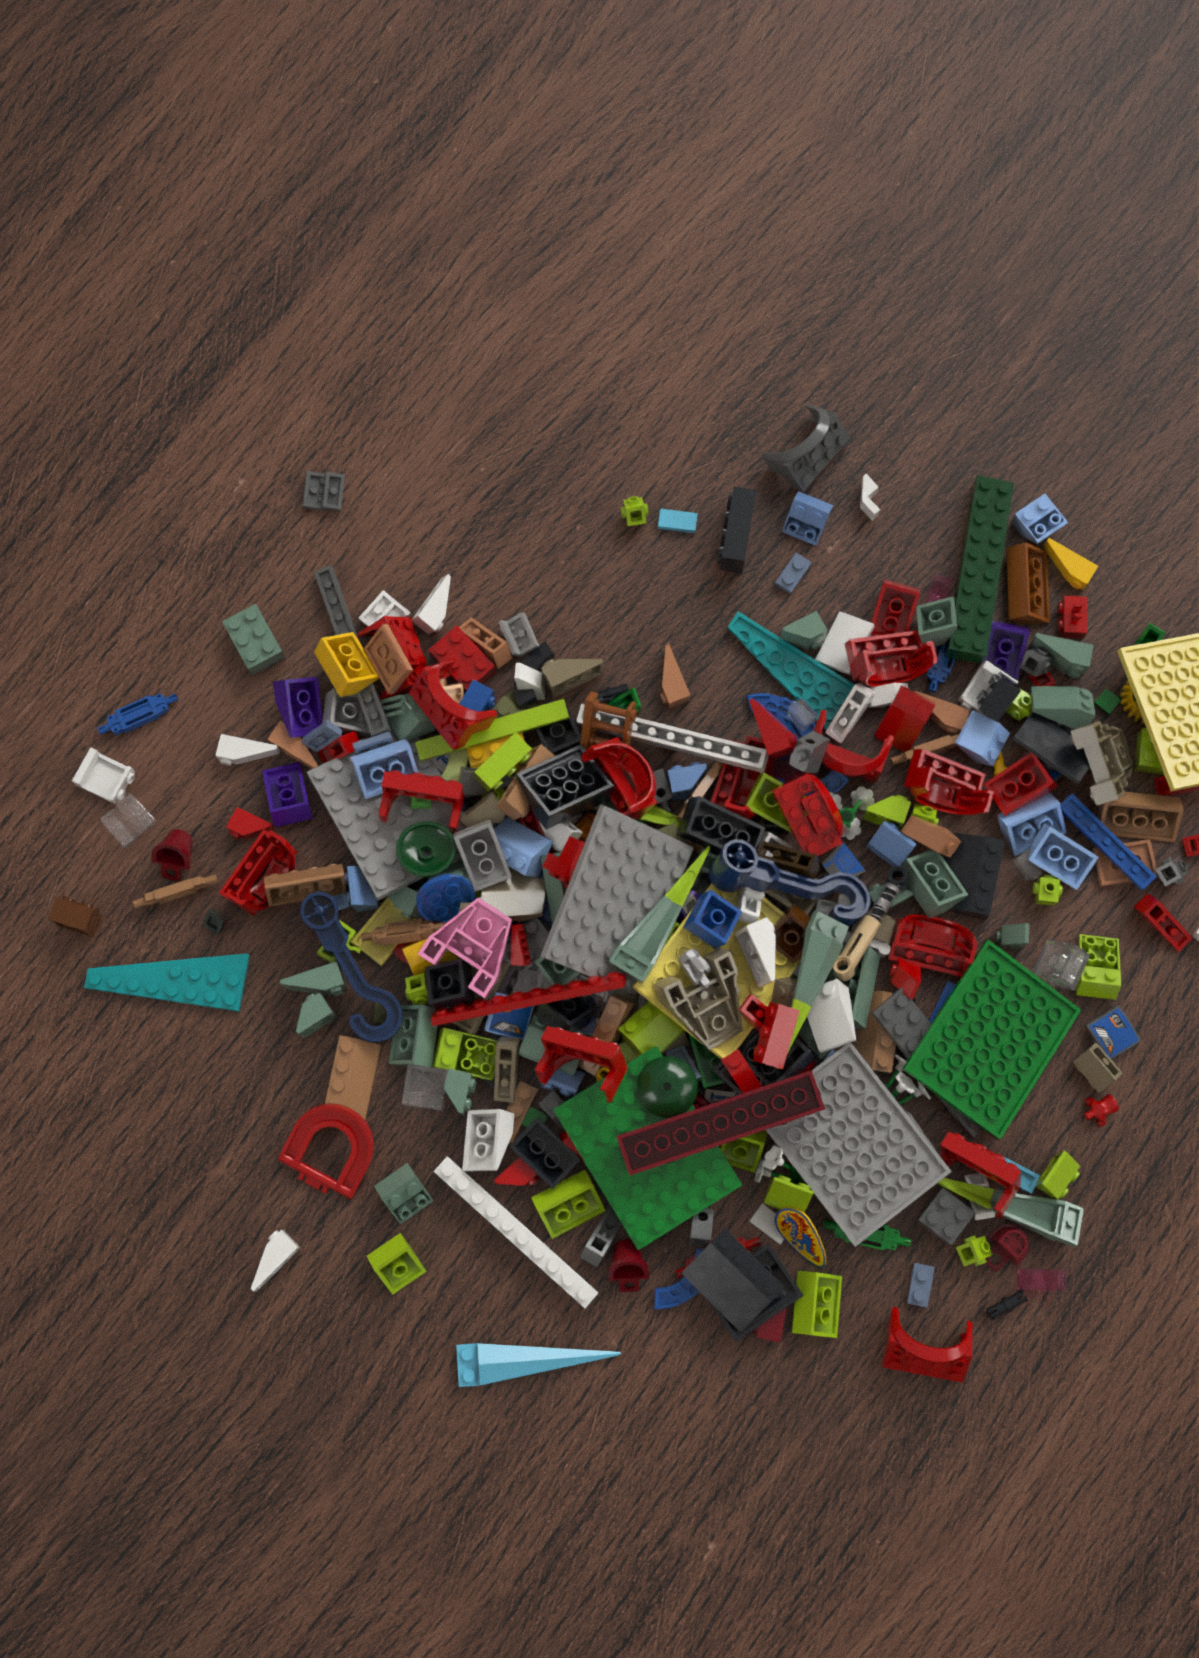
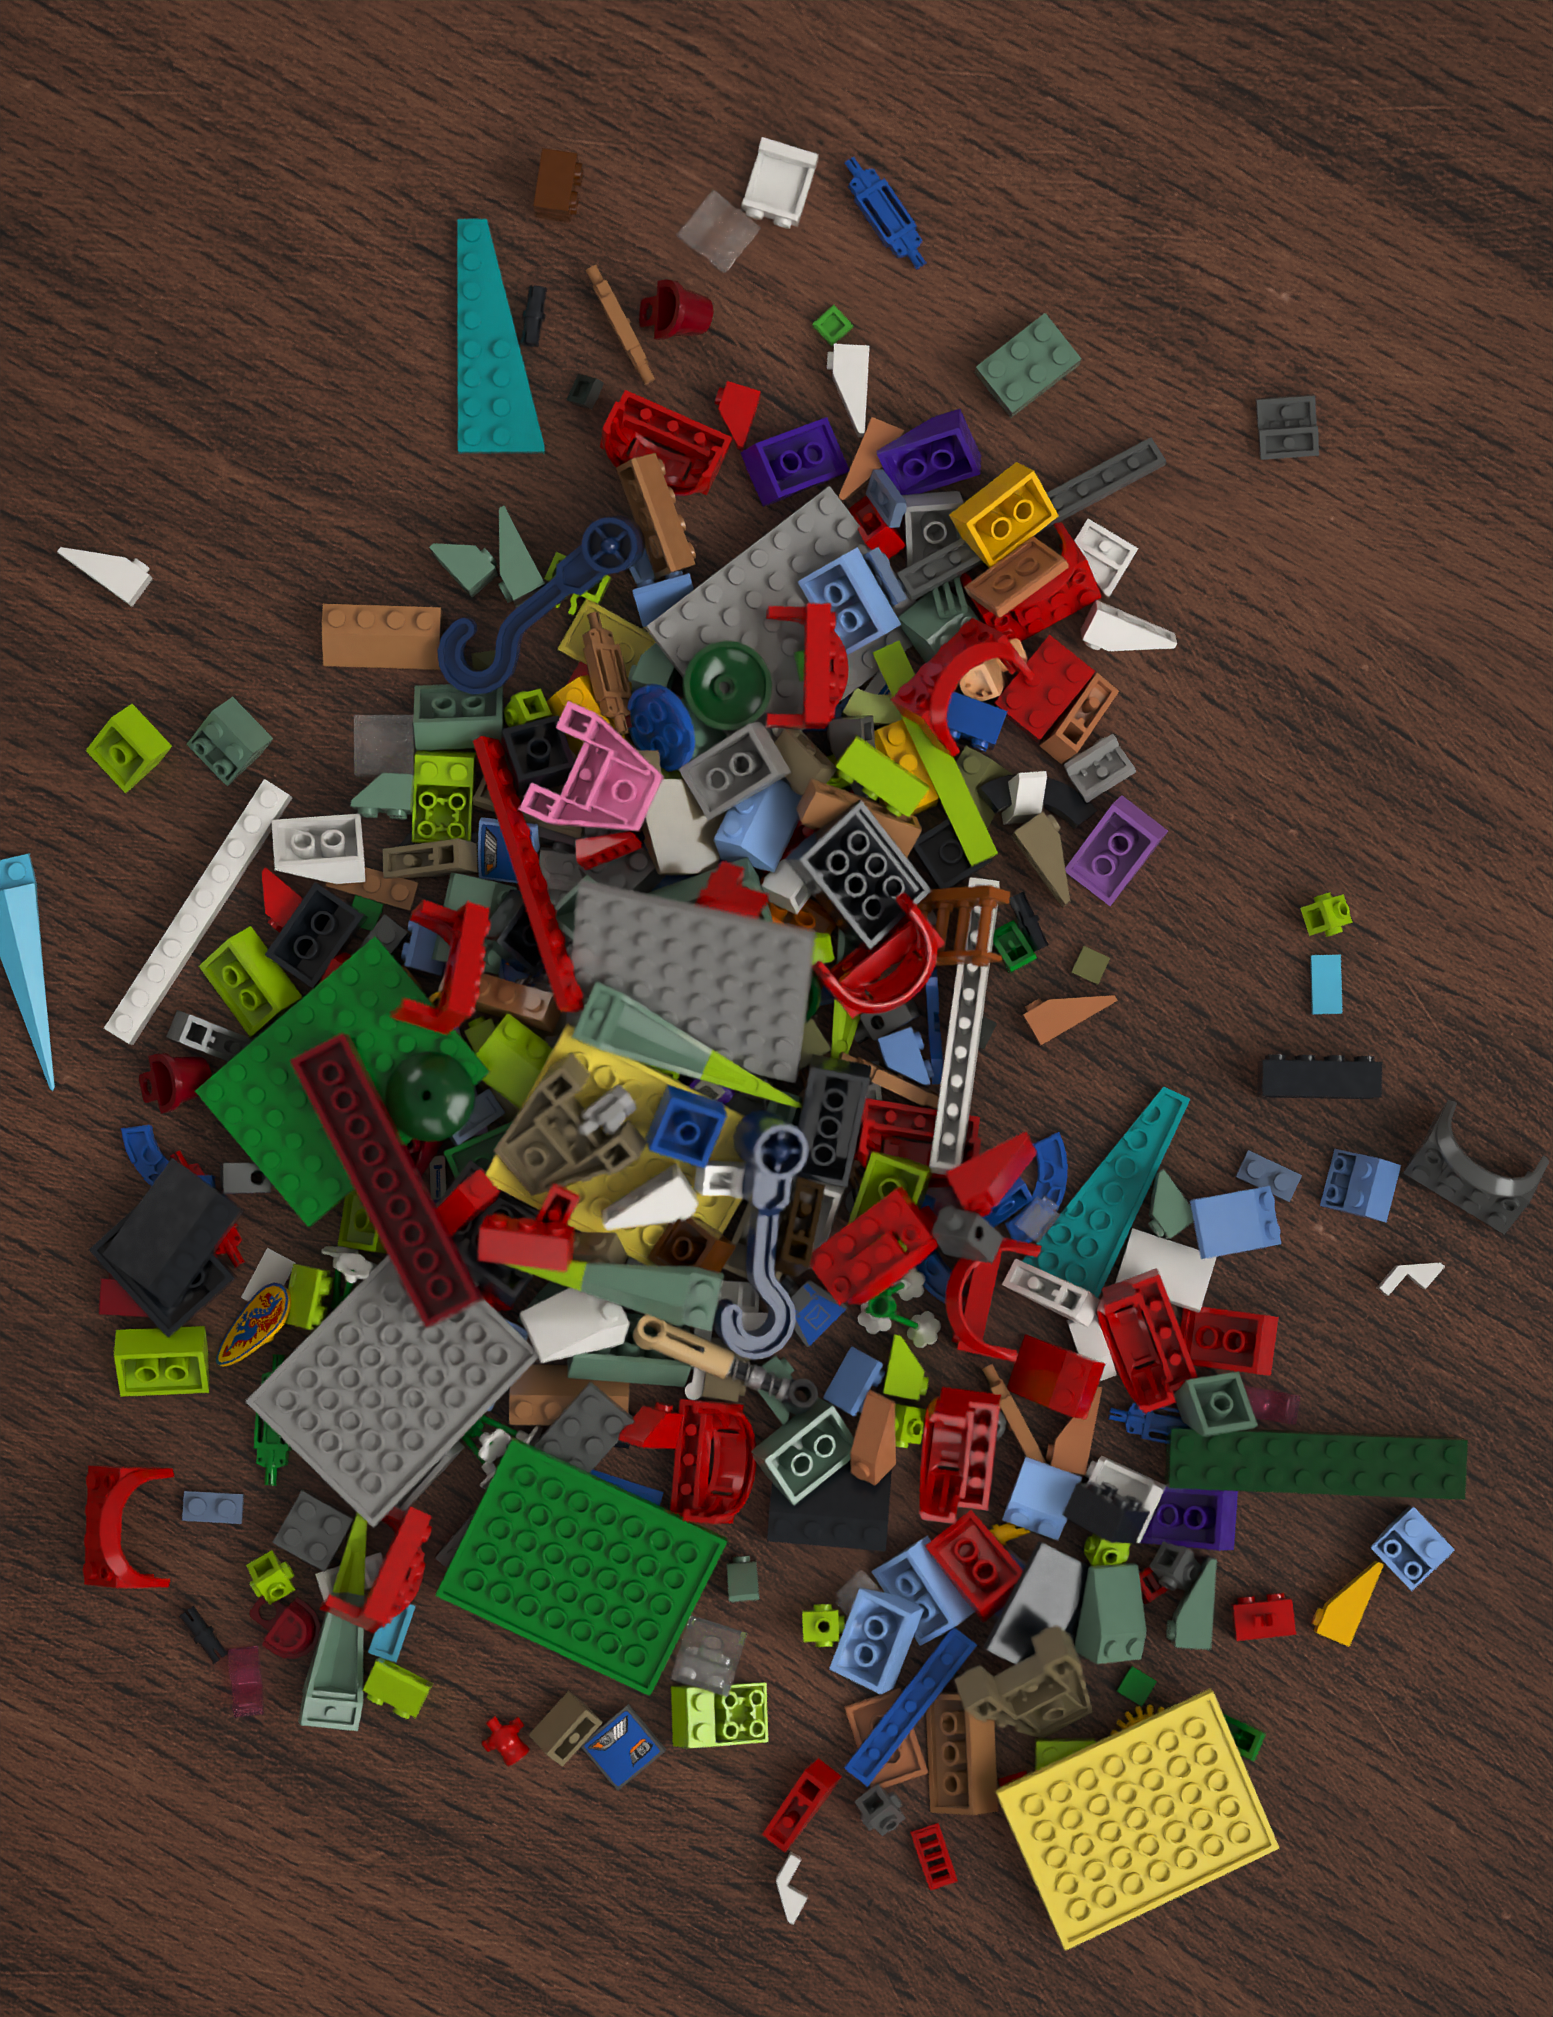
camera: 80 degrees right, 10 degrees up
(158, 947) = (533, 316): none -> black pin
(203, 758) = (832, 325): none -> bright green tile
(361, 1147) = (316, 638): red piece -> none
(572, 631) = (1115, 850): none -> medium lavender slope
(643, 660) = (1090, 965): none -> olive tile
(656, 761) = (933, 1024): none -> blue tile
(821, 590) = (1235, 1222): none -> medium blue slope
(1027, 584) = (1305, 1542): dark orange slope -> none

